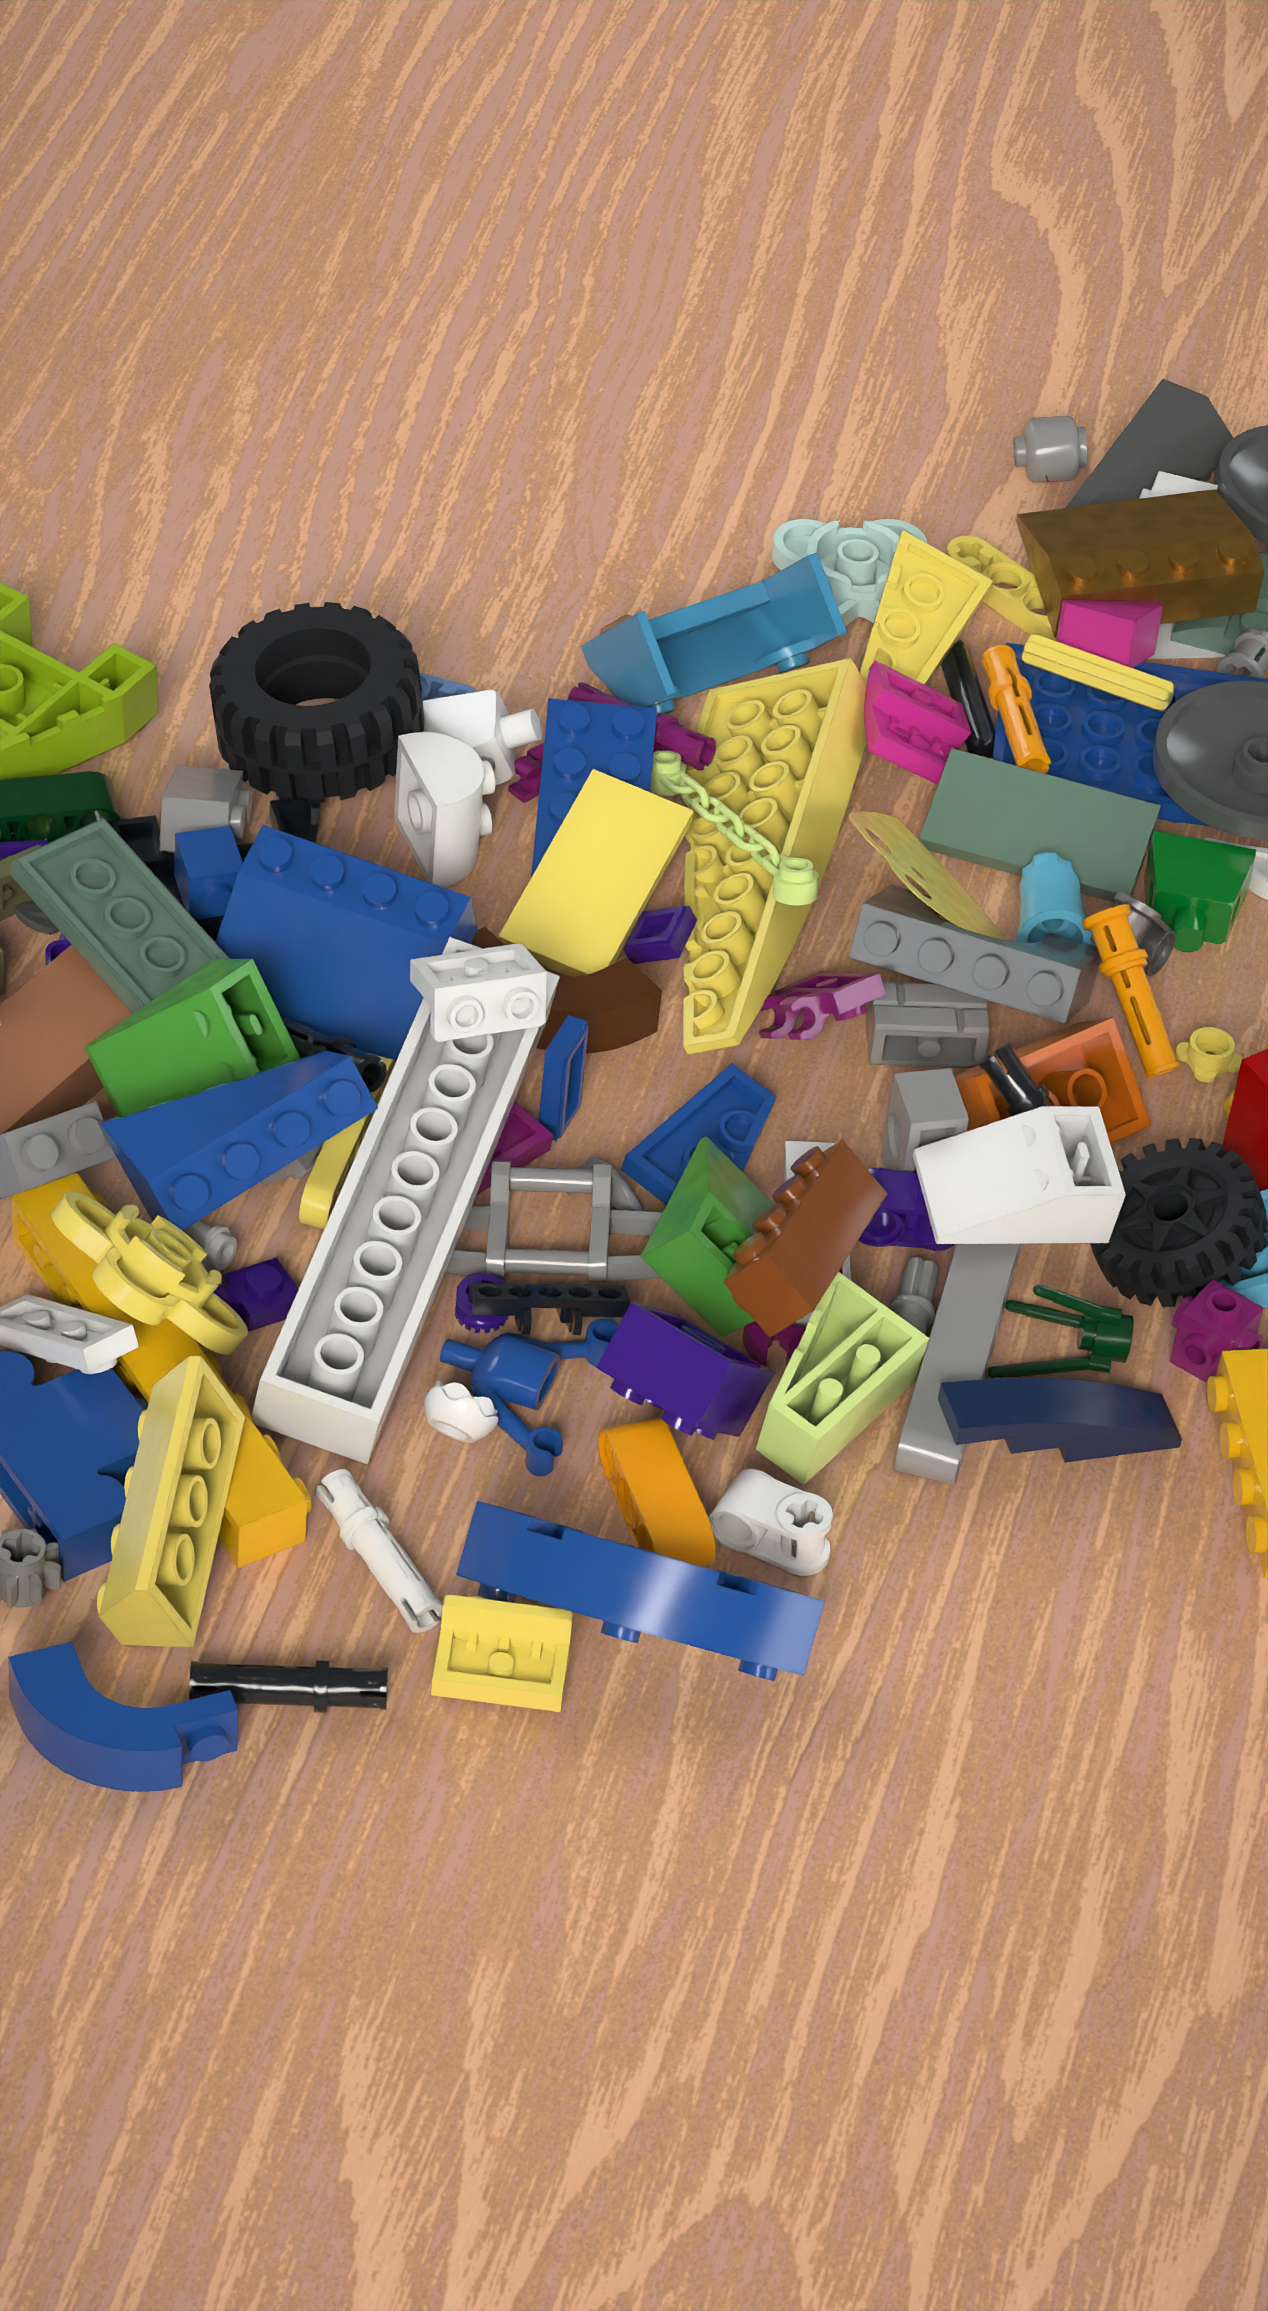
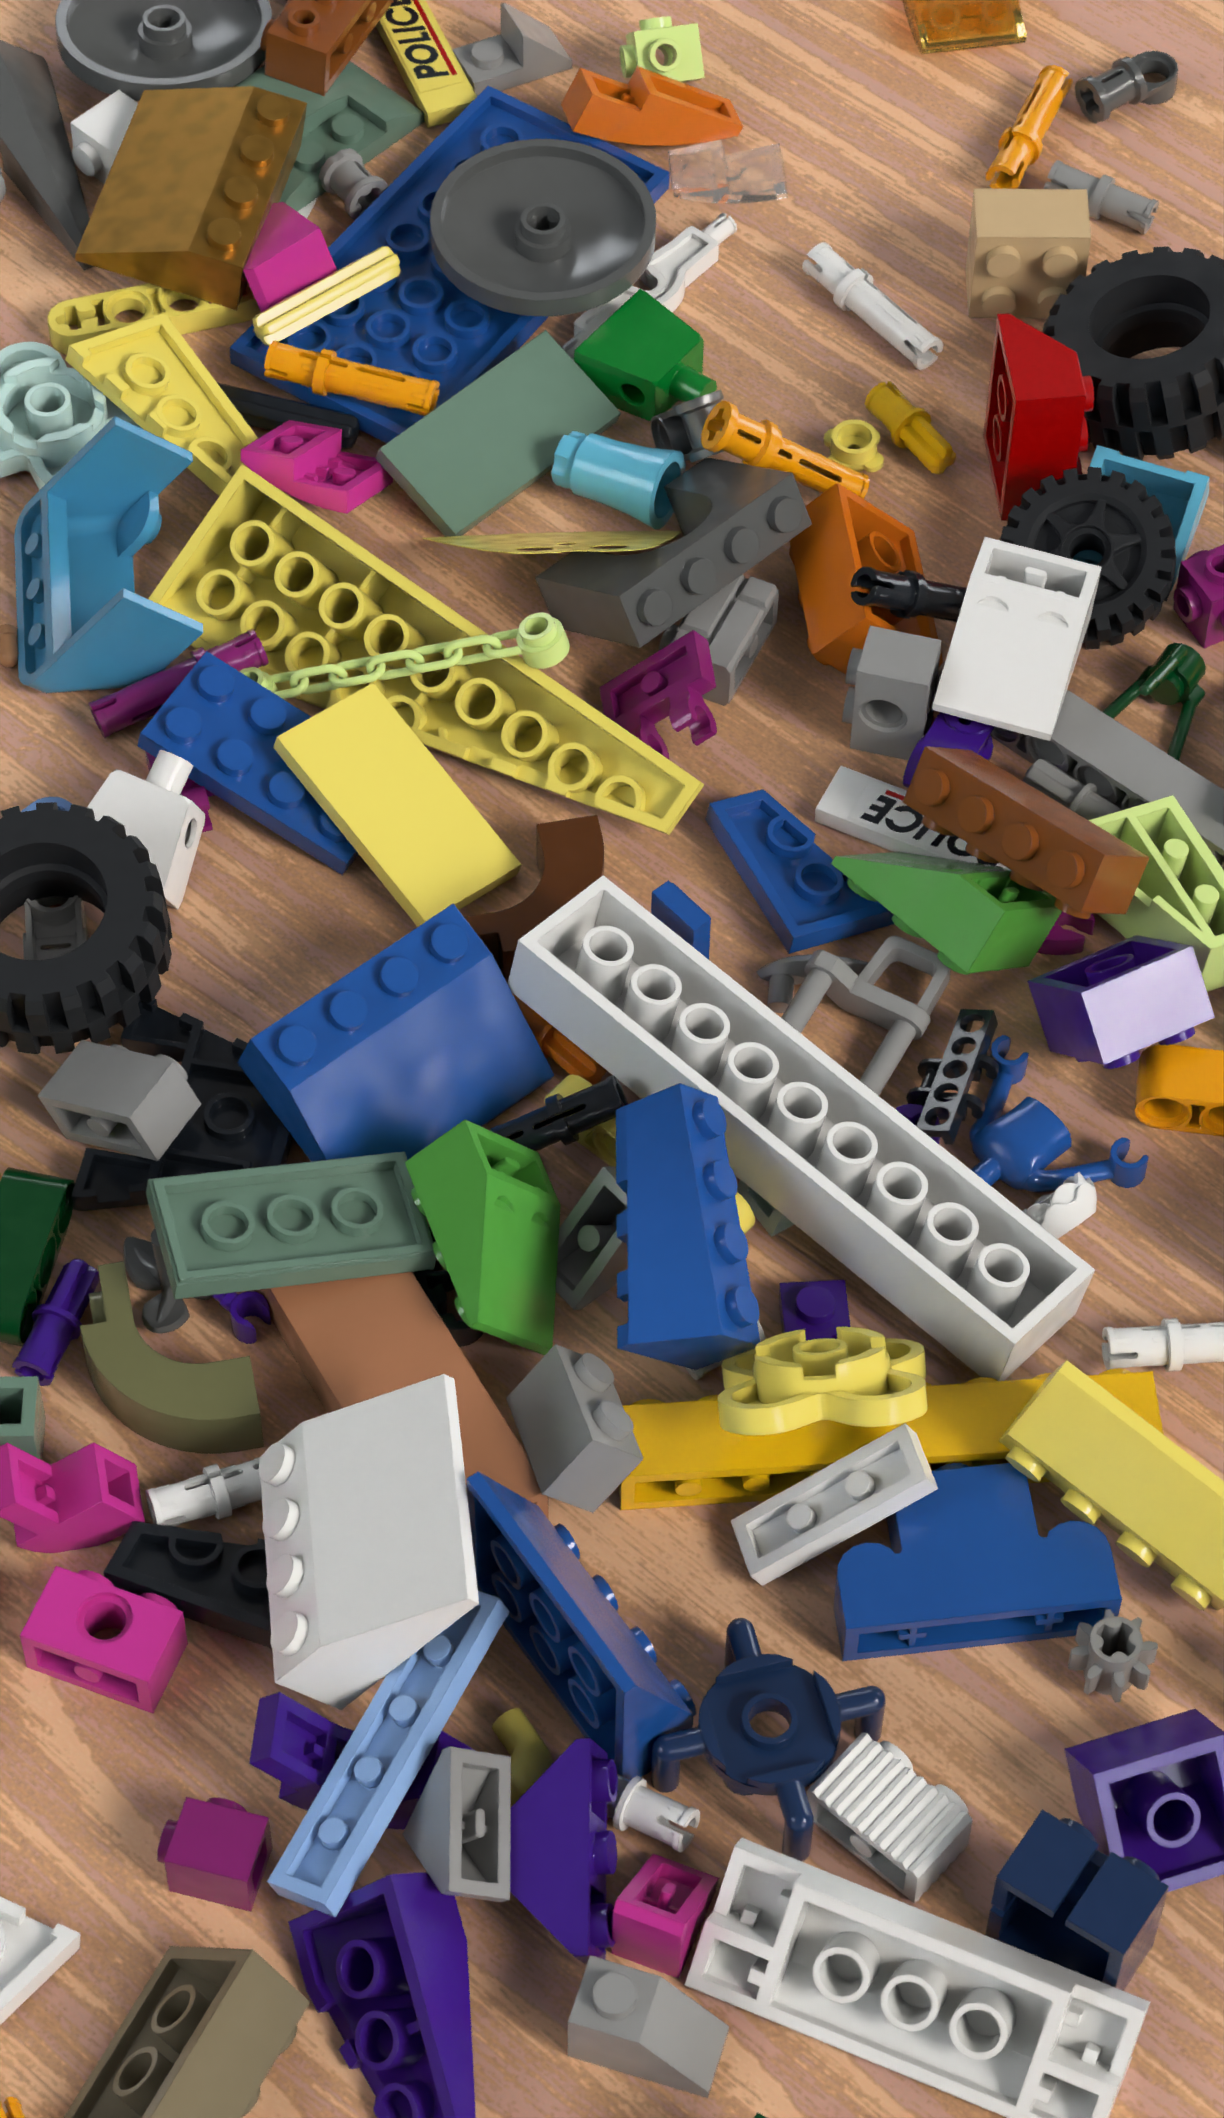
camera: 60 degrees left, 10 degrees up
(206, 870) = (234, 1125): blue brick -> none
(442, 804) = (233, 889): white brick -> none
(481, 991) = (616, 938): white bracket -> none
(660, 934) = (491, 787): dark purple tile -> none

